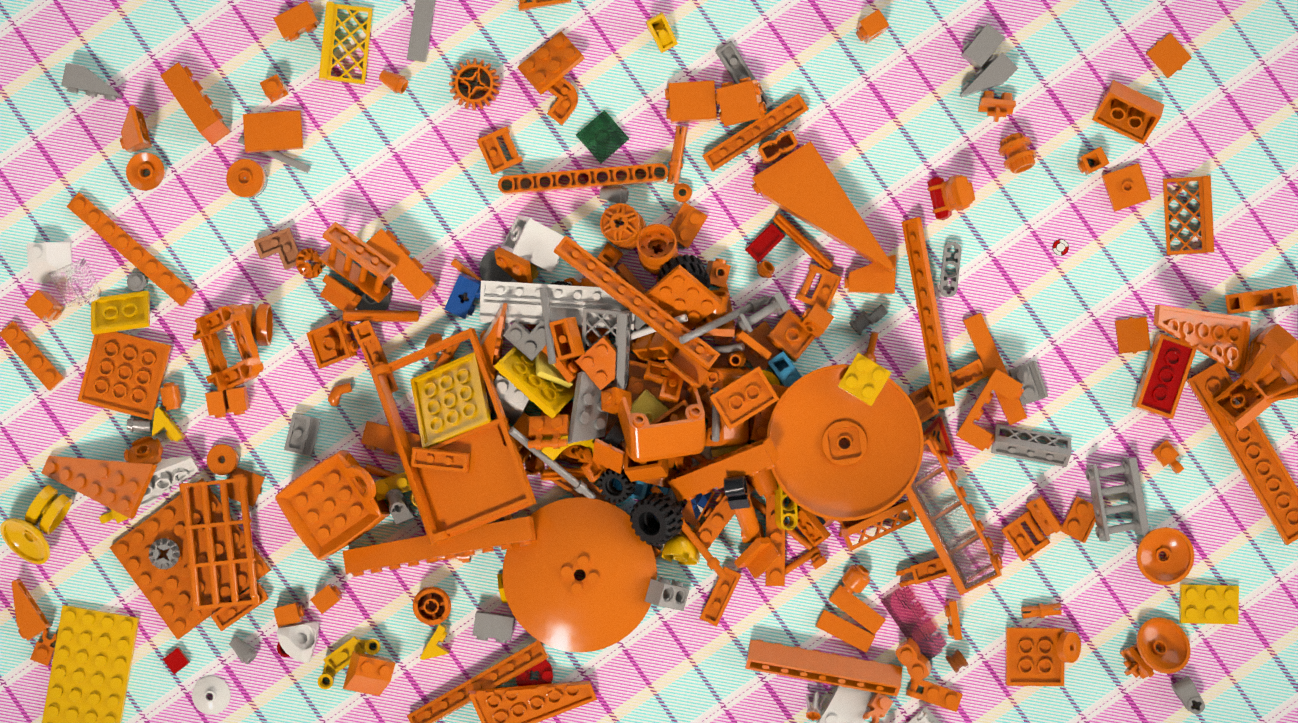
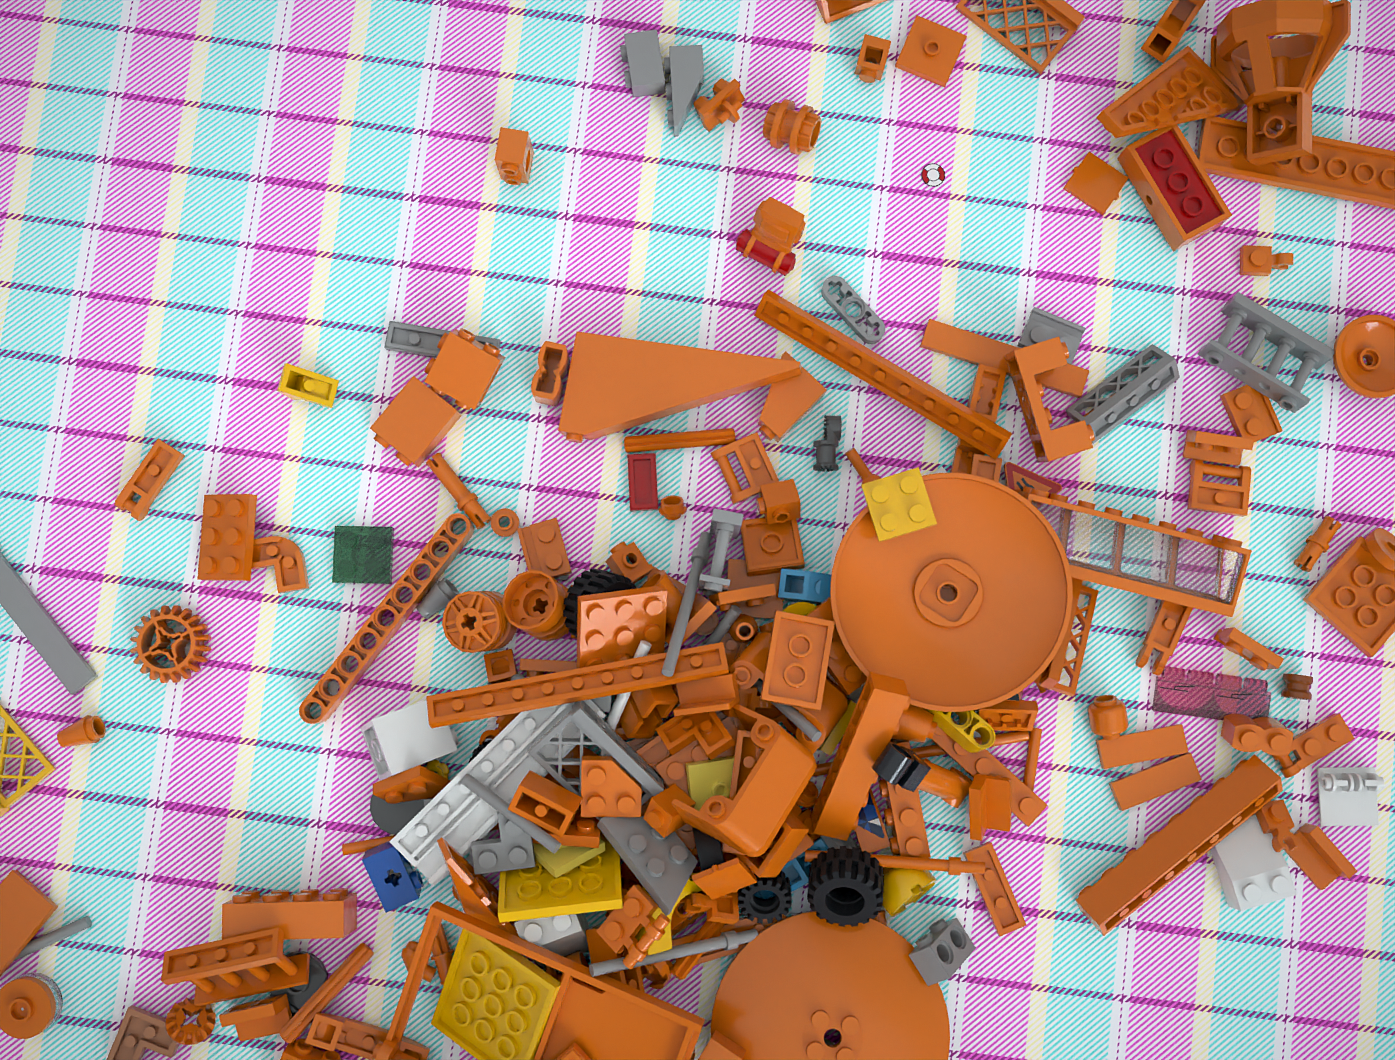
camera: 55 degrees left, 5 degrees down
(493, 153) = (267, 692): orange plate -> none
(755, 132) = (513, 384): orange plate -> none
(814, 711) = (1221, 902): flat silver piece -> none
(818, 561) = (1050, 740): orange plate -> none

